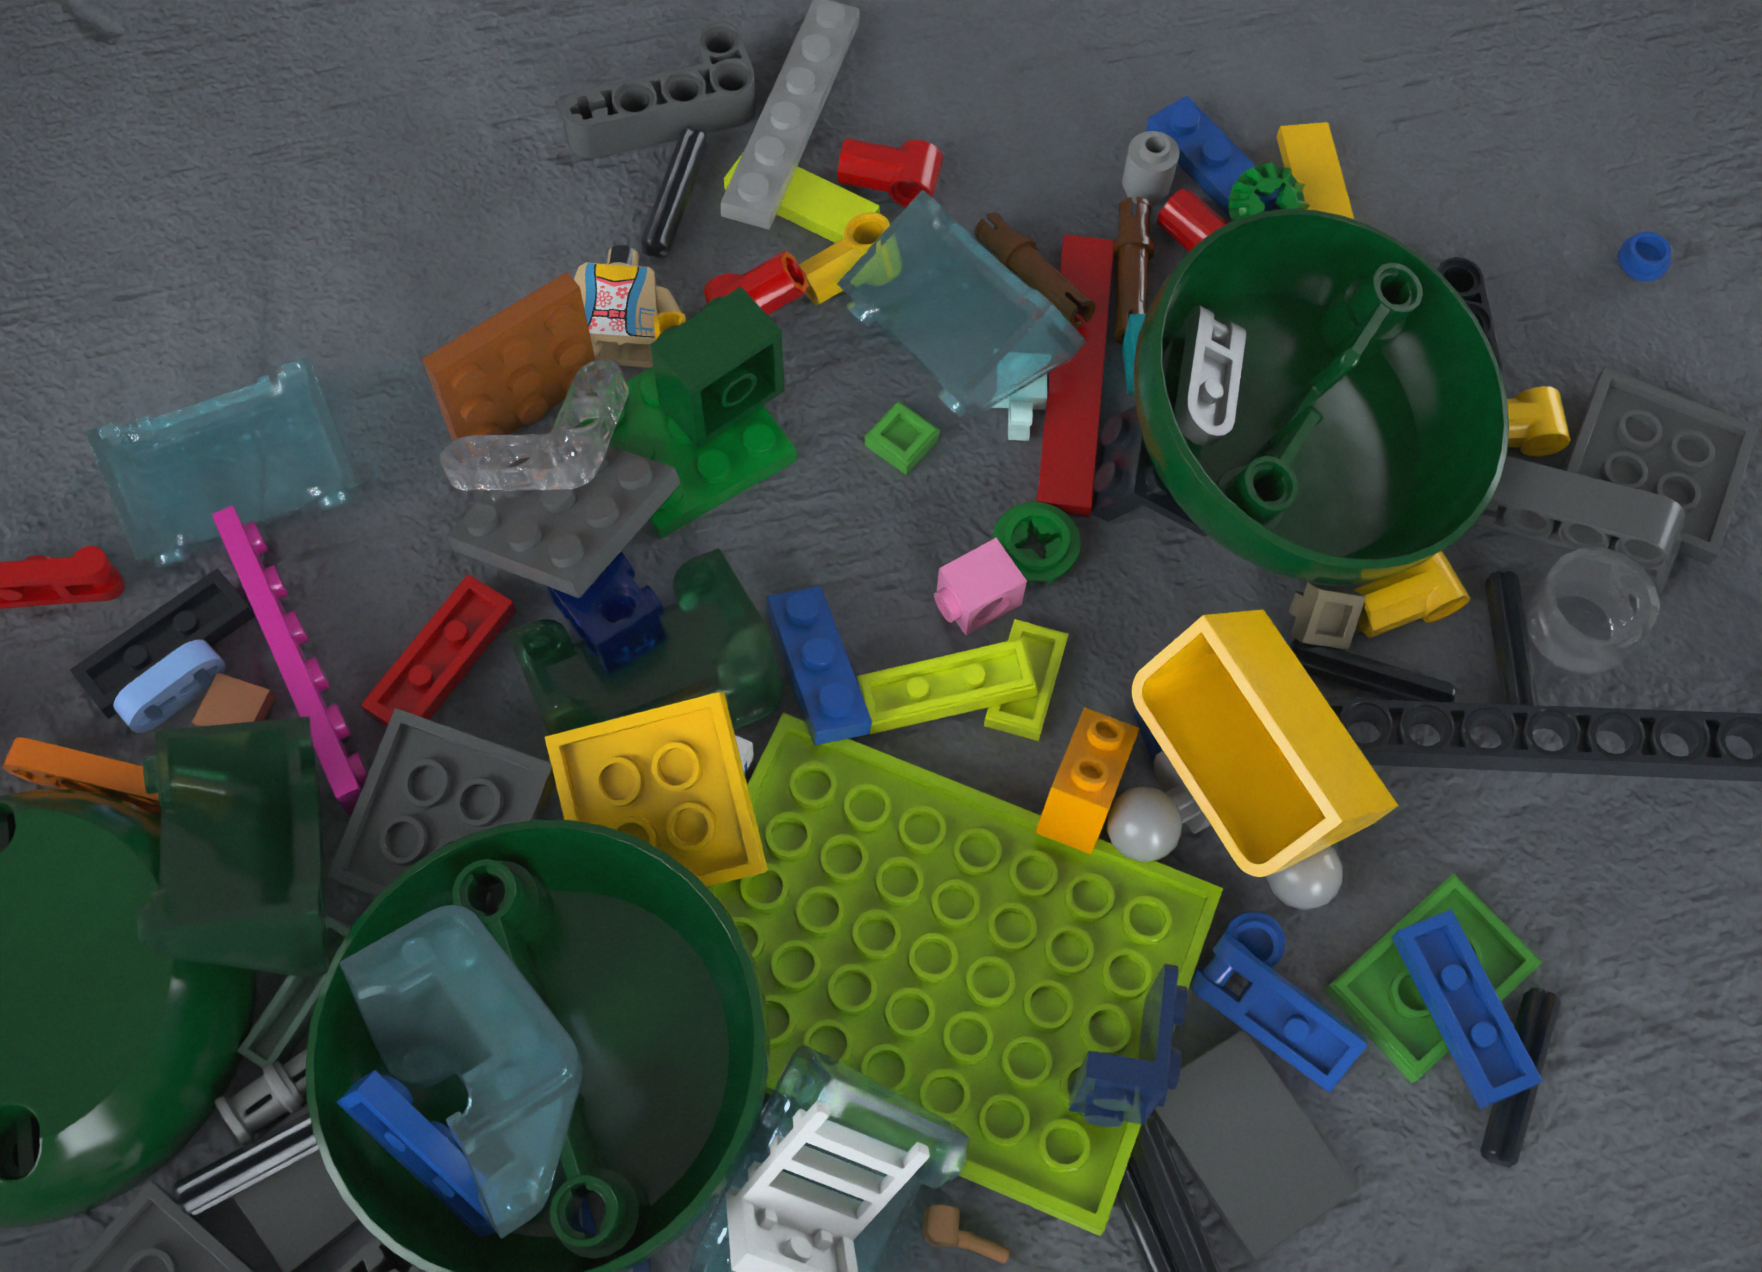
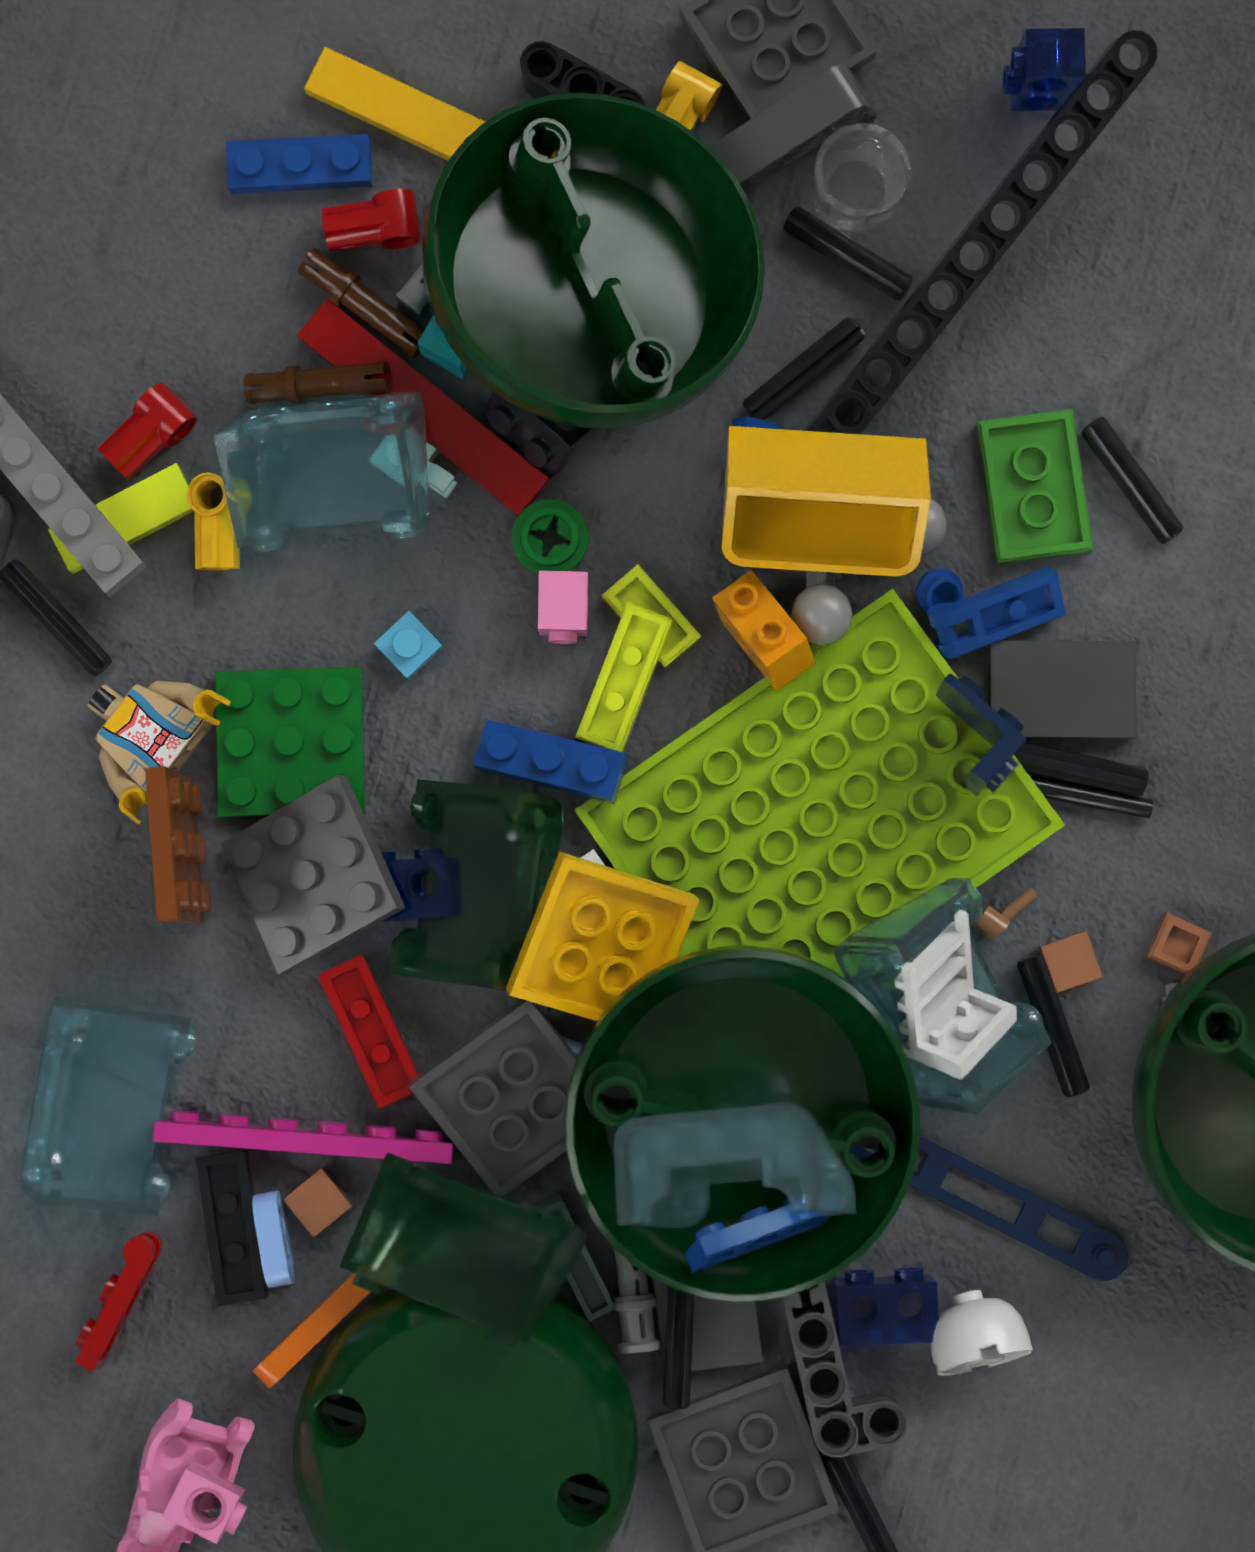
camera: 55 degrees left, 20 degrees up
(483, 460) = (262, 859): clear beam -> none
(718, 366) = (272, 691): dark green brick -> none
(769, 284) = (204, 628): red piece -> none
(846, 482) = (408, 645): none -> medium azure plate
(902, 437) = (396, 578): bright green tile -> none
(1150, 166) = (284, 238): light grey brick -> none
(1209, 377) = (524, 332): light grey plate -> none
(1263, 181) = (357, 147): green gear -> none
(1326, 615) = (747, 374): dark tan tile -> none
(1423, 592) = (776, 289): yellow piece -> none
(1466, 1009) = (1073, 488): blue plate -> none

